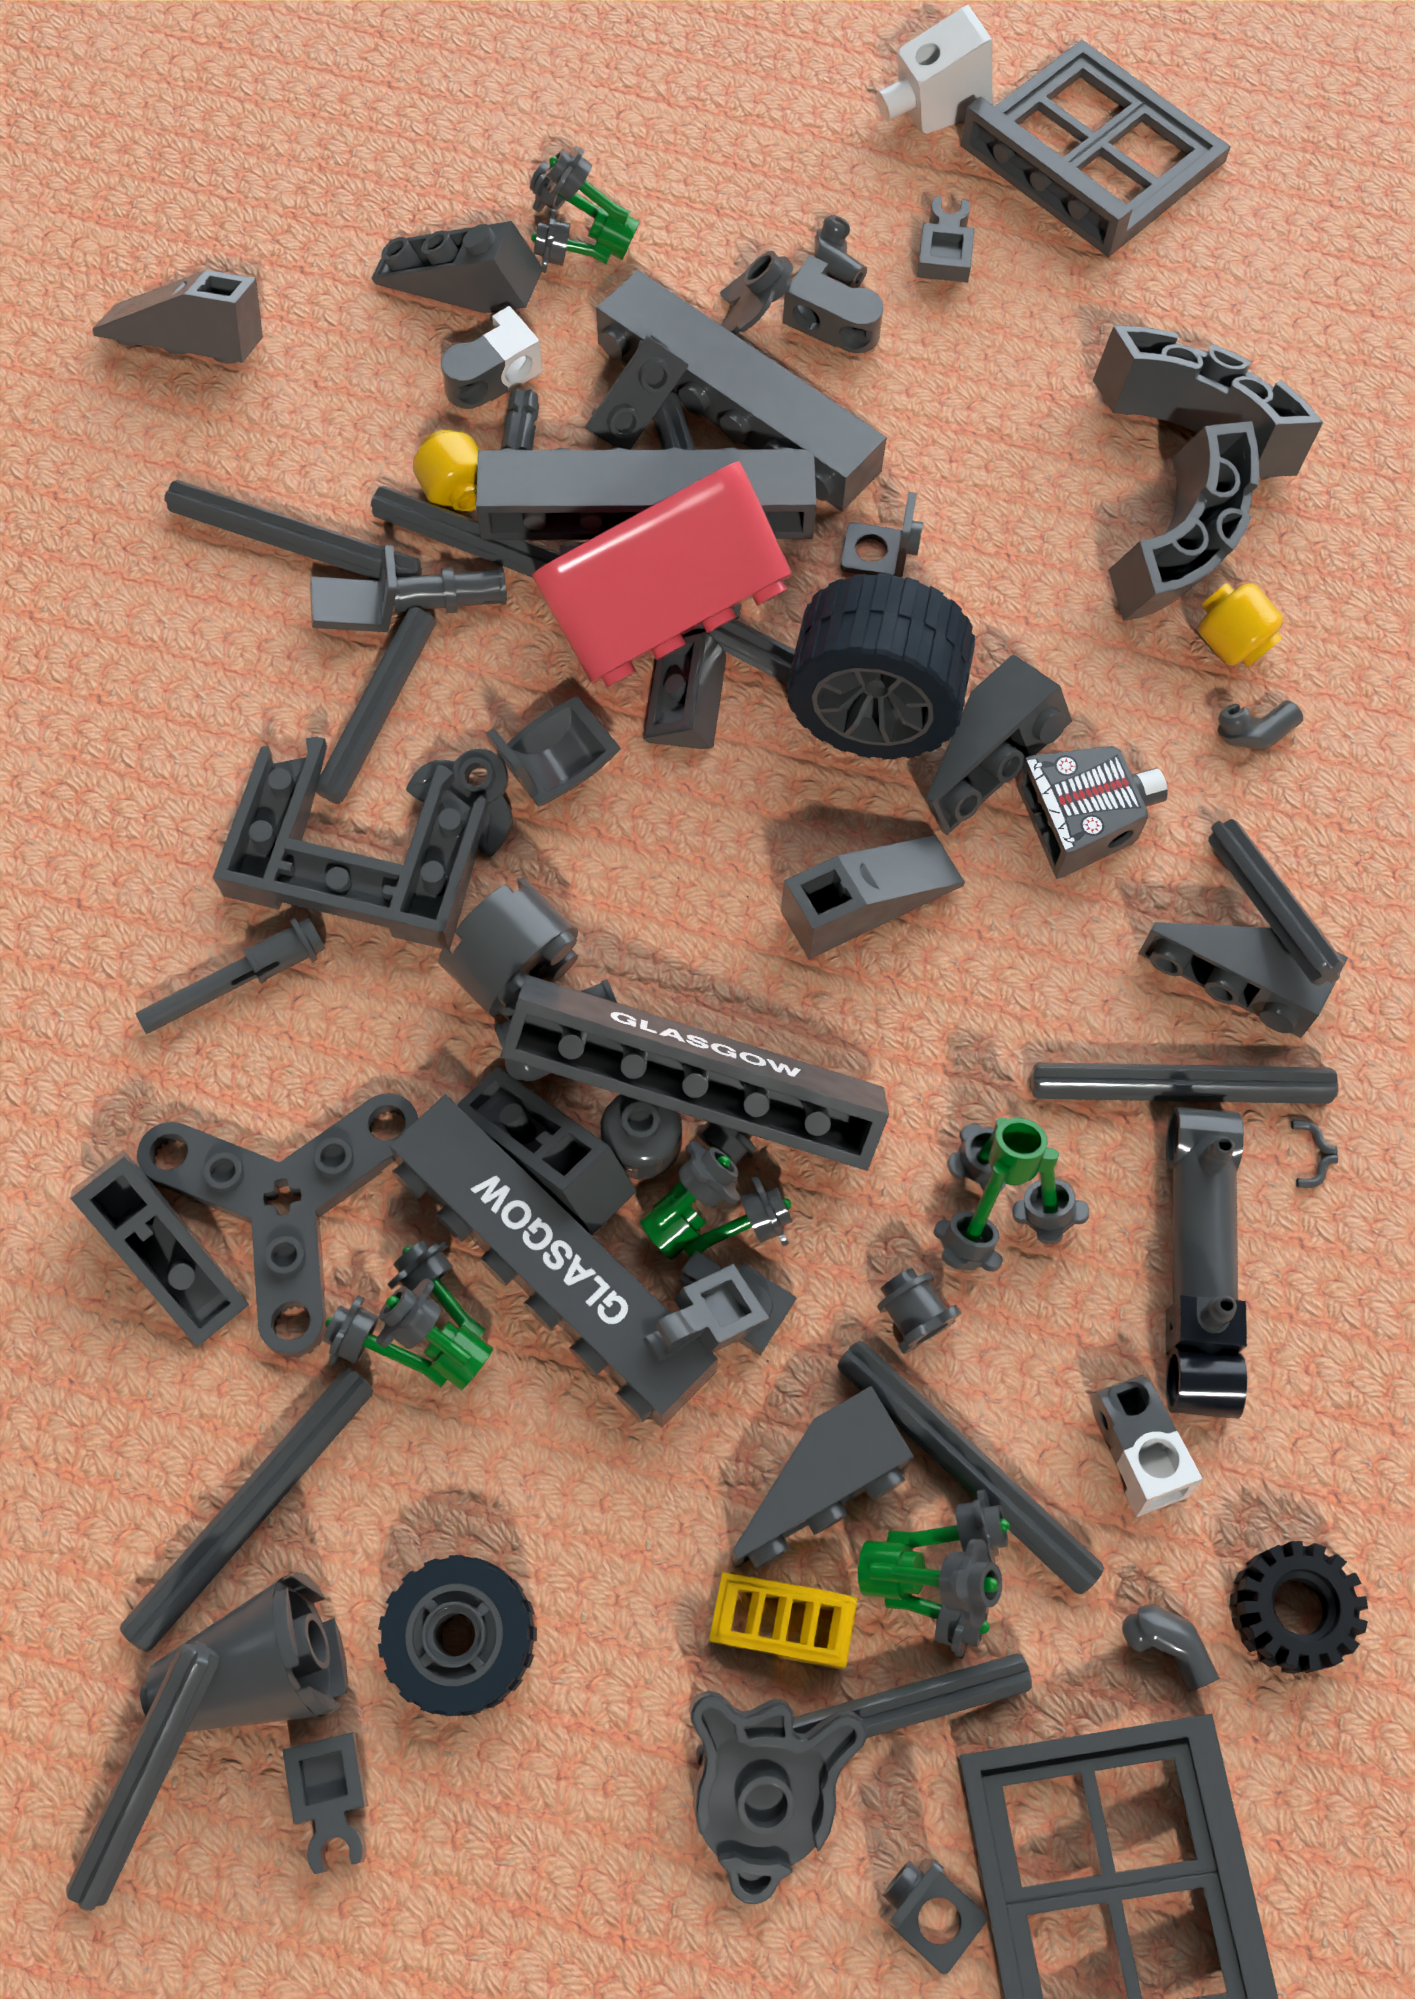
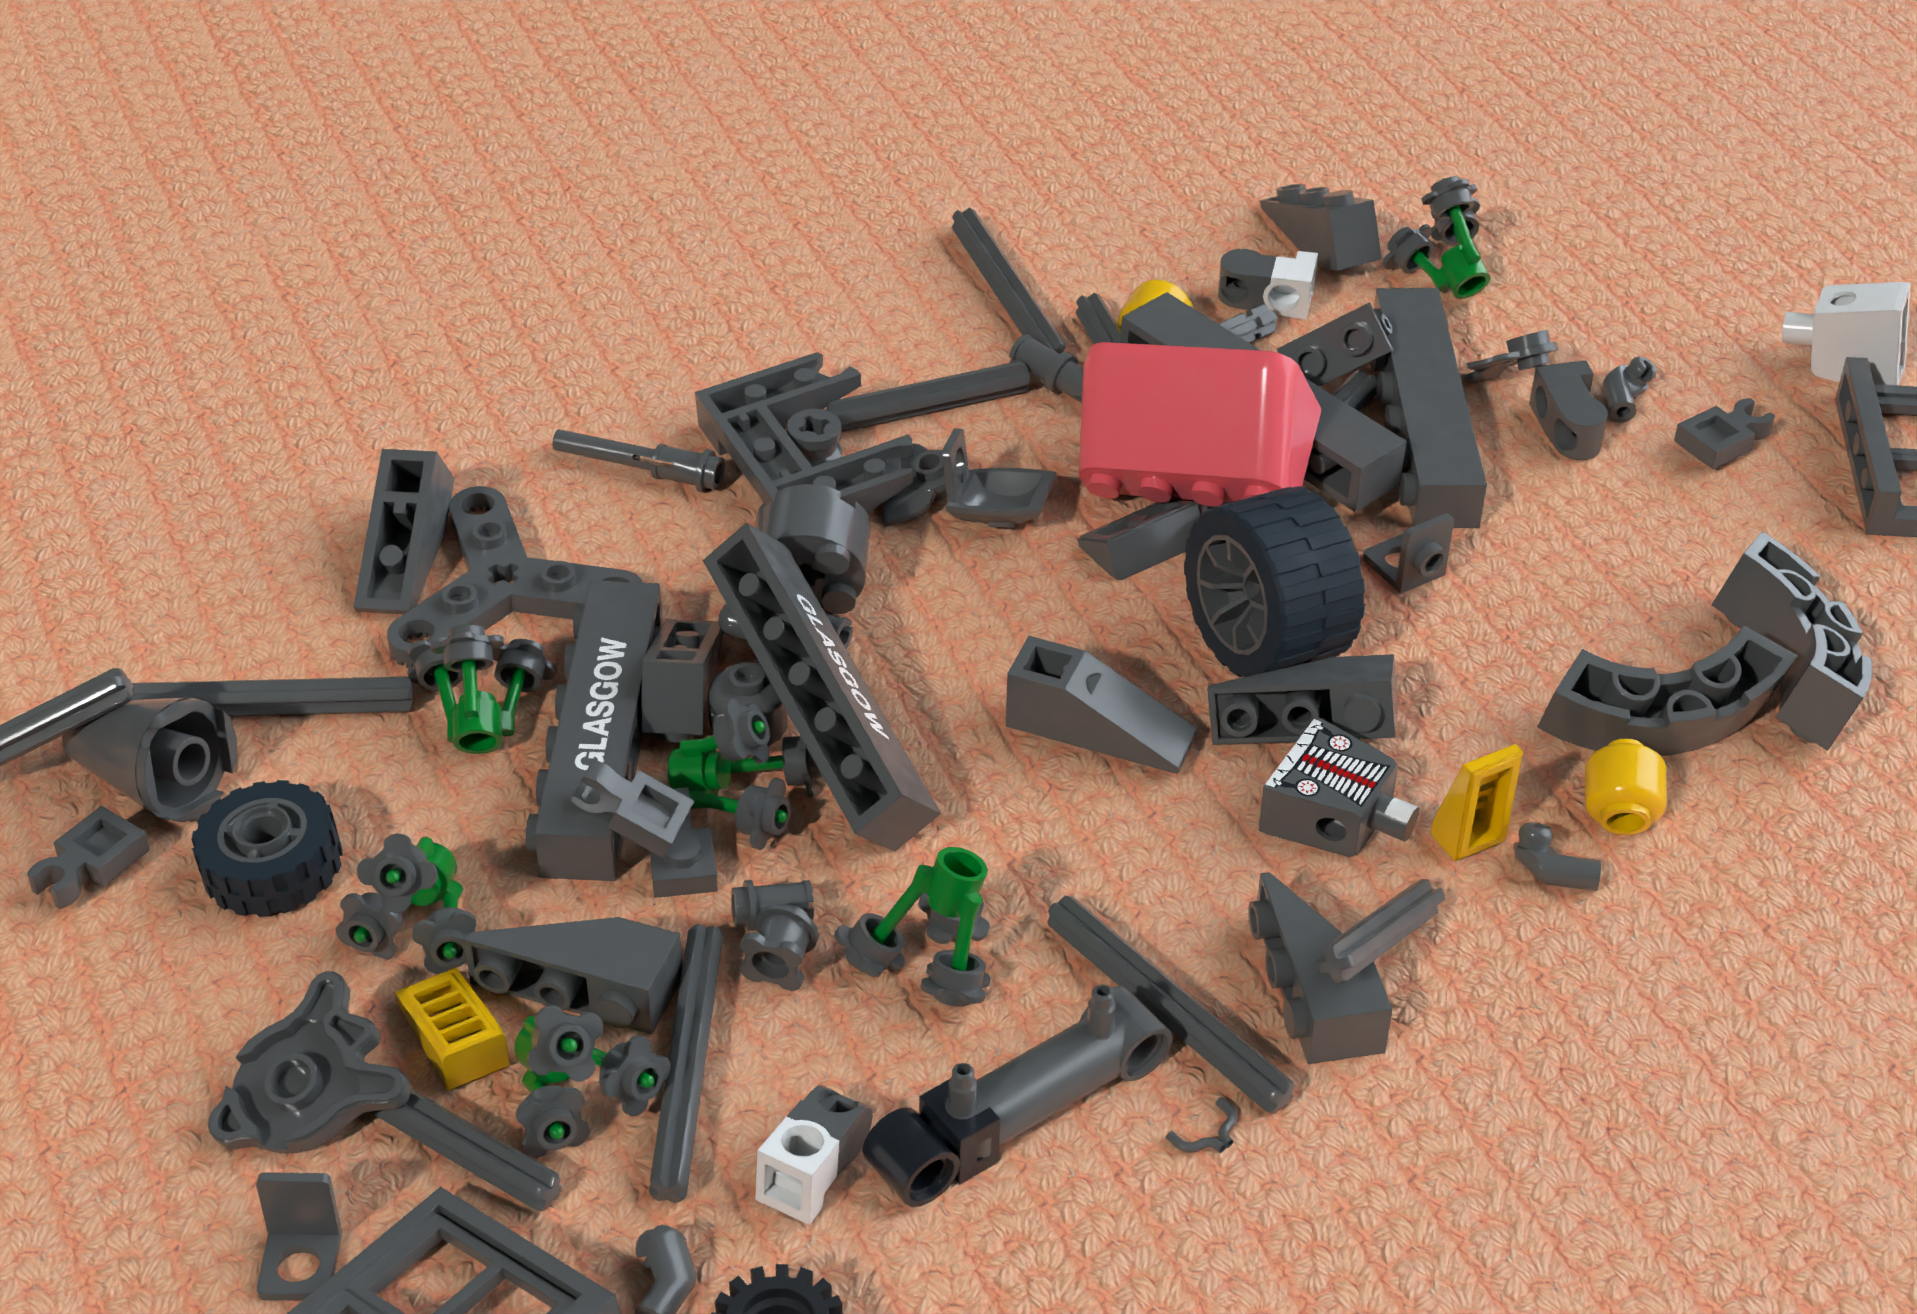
camera: 50 degrees right, 25 degrees down
(196, 315) = (1105, 139): dark grey slope -> none
(355, 602) = (990, 337): bracket -> none
(368, 835) = (816, 435): none -> dark grey wheel
(655, 1572) = (403, 877): none -> dark grey plant
(855, 1290) = (751, 899): none -> dark grey pin
(1191, 730) = (1478, 804): none -> yellow slope

